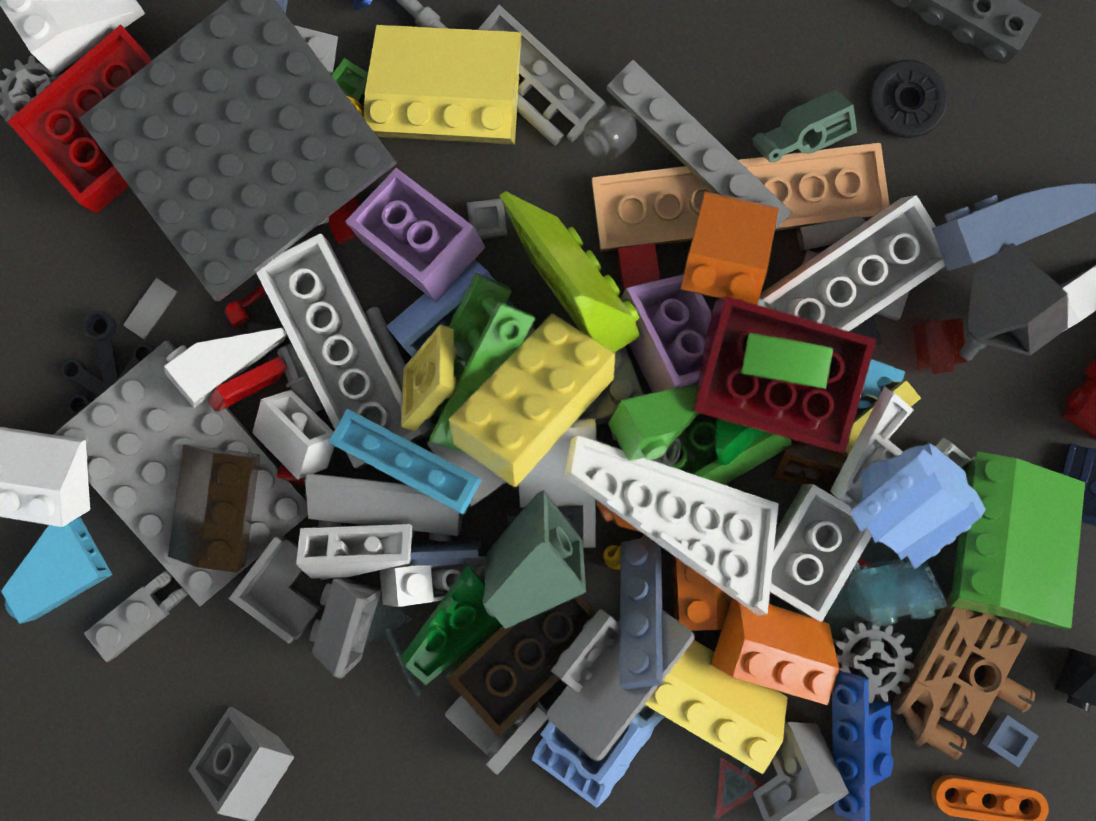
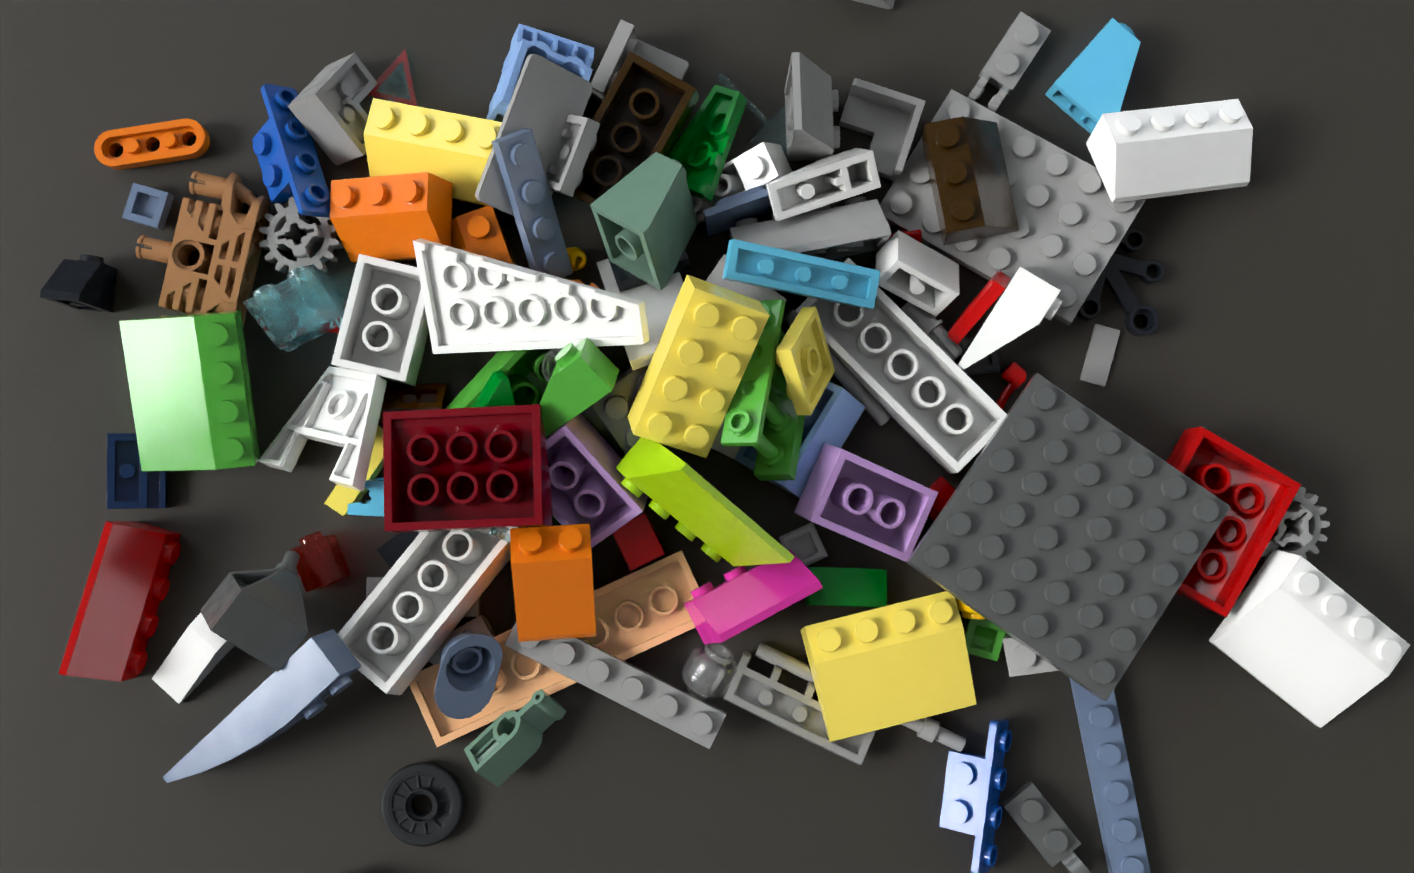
camera: 160 degrees right, 0 degrees up
(459, 167) = (849, 587): none -> green slope
(554, 178) = (748, 598): none -> dark pink slope
(787, 360) = (464, 478): bright green slope -> none
(834, 194) = (467, 674): none -> sand blue piece
(916, 503) = (301, 389): light blue slope -> none

